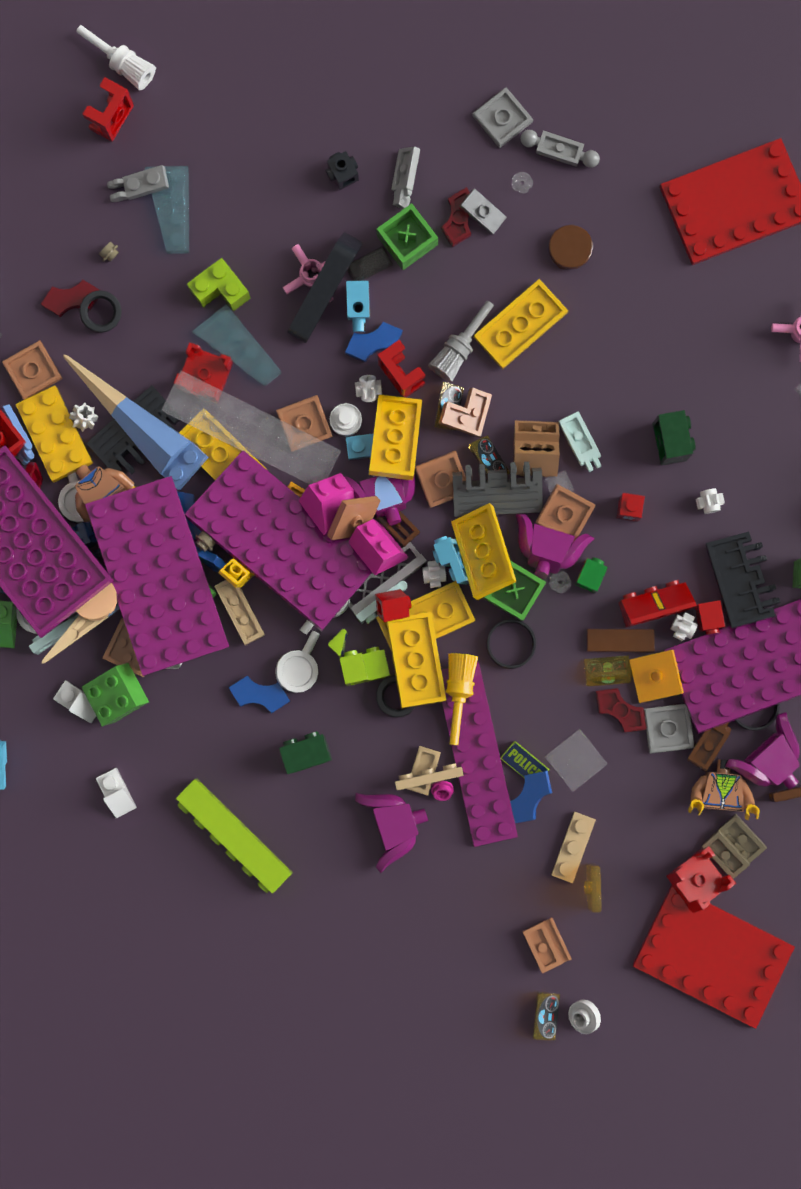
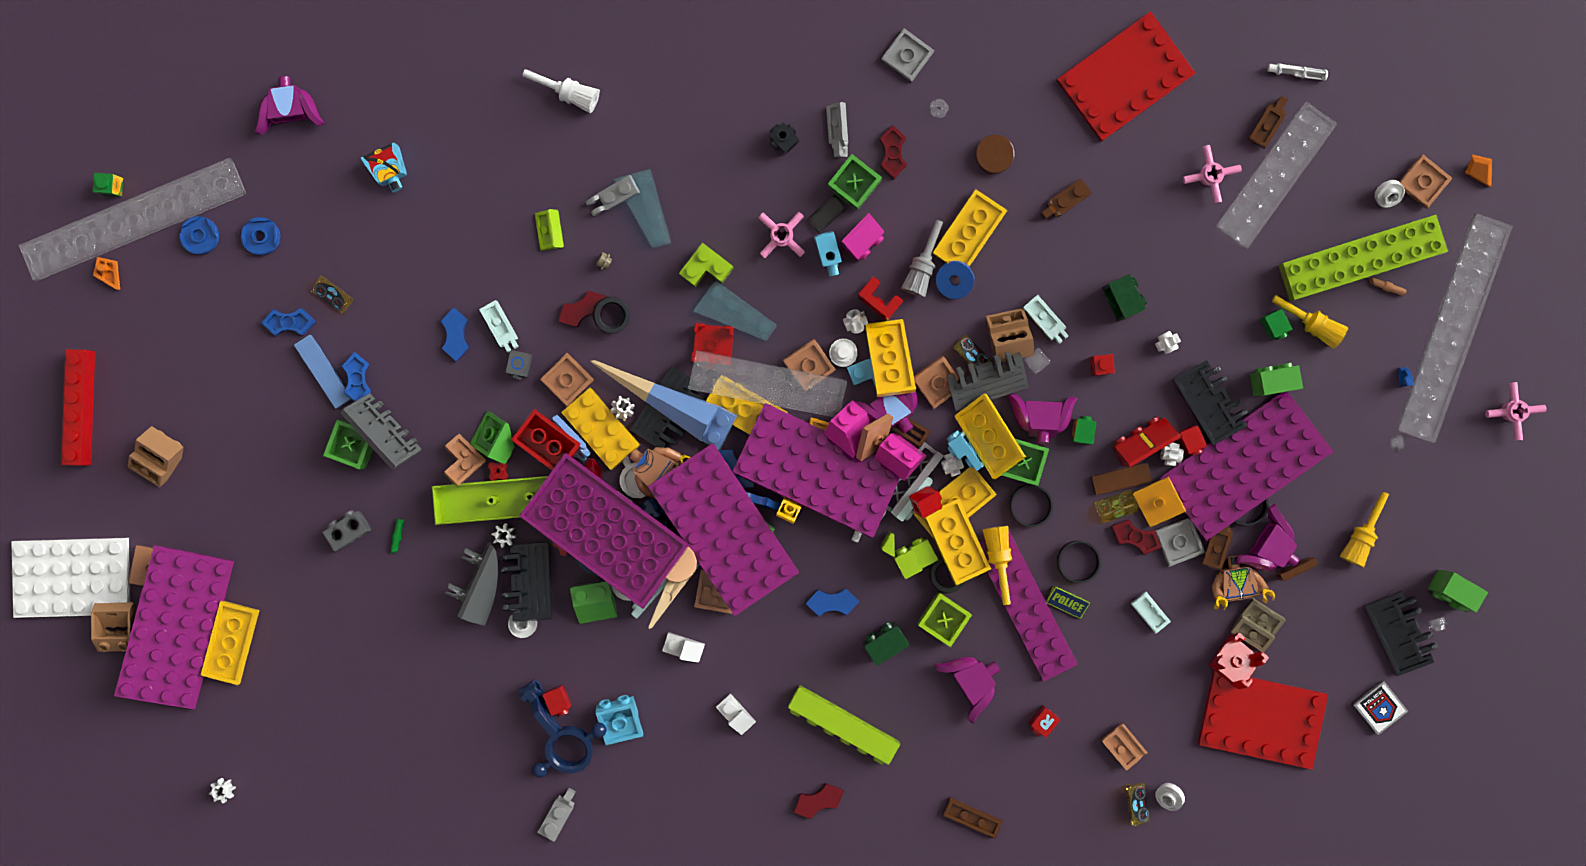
camera: 10 degrees left, 5 degrees up
(59, 203) = (549, 229): none -> lime slope
(111, 120) = (576, 140): red panel -> none
(115, 694) = (714, 635): bright green brick -> none
(172, 918) = (810, 804): none -> dark red tile
(204, 542) = (754, 489): dark tan plate -> none
(240, 612) = (798, 539): tan plate -> none
(297, 669) = (859, 574): white piece -> none
(324, 287) = (805, 219): black beam -> none
(353, 983) = (972, 817): none -> reddish brown tile
(364, 345) = (857, 273): blue tile -> none
(379, 744) = (944, 619): none -> lime brick
(400, 298) = (863, 238): none -> dark pink slope
(424, 760) = (985, 630): tan plate -> none
(428, 776) = (992, 636): tan plate -> none
(442, 790) = (1005, 642): dark pink plate -> none
(449, 393) = (926, 318): slope -> none
(462, 892) = (1043, 722): none -> red brick
(469, 418) = (948, 323): plate -> none
(482, 211) = (912, 142): plate -> none
(503, 371) = (952, 290): none -> blue tile
(535, 788) = (1082, 621): blue tile -> none
(560, 148) = (963, 70): light grey plate -> none
(560, 588) = (1063, 443): clear plate -> none
(565, 511) = (1048, 383): nougat plate -> none
(571, 718) = (1097, 566): none -> black tyre
(573, 847) = (1125, 660): tan plate -> none
(576, 760) = (1109, 588): clear plate -> none
(592, 887) = (1152, 691): clear yellow plate -> none
(615, 799) = (1150, 612): none -> light aqua plate
(637, 317) = (1067, 199): none -> reddish brown hinge

